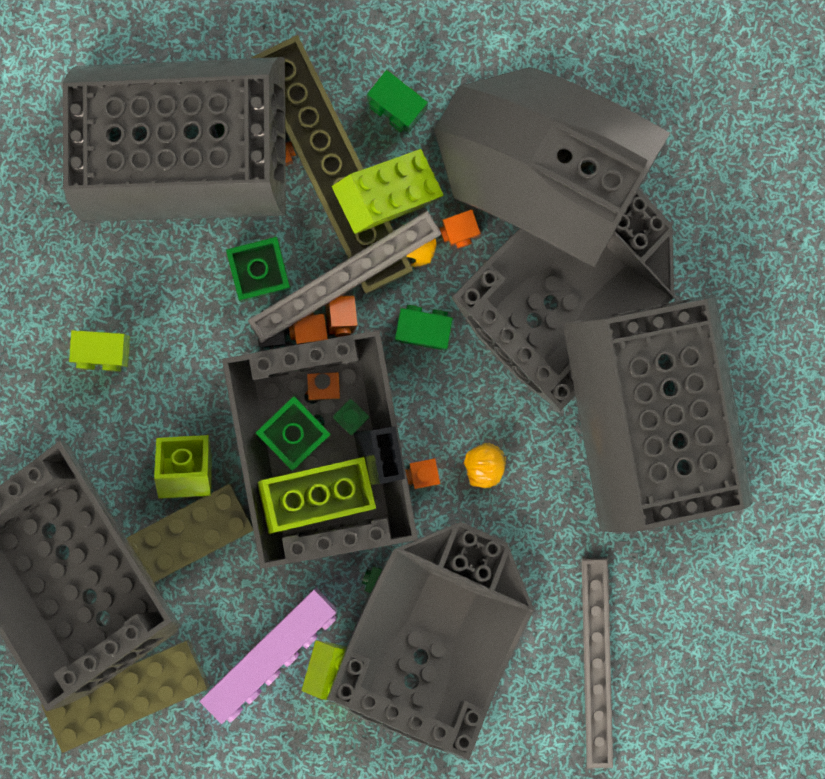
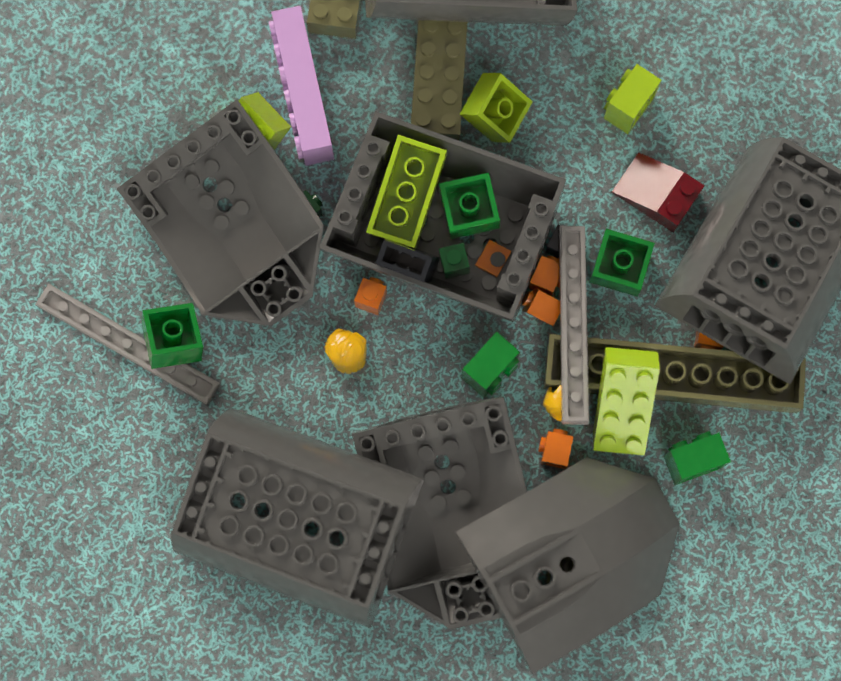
camera: 125 degrees right, 10 degrees down
(169, 277) = (658, 190): none -> slope
(568, 625) = (172, 335): none -> green brick

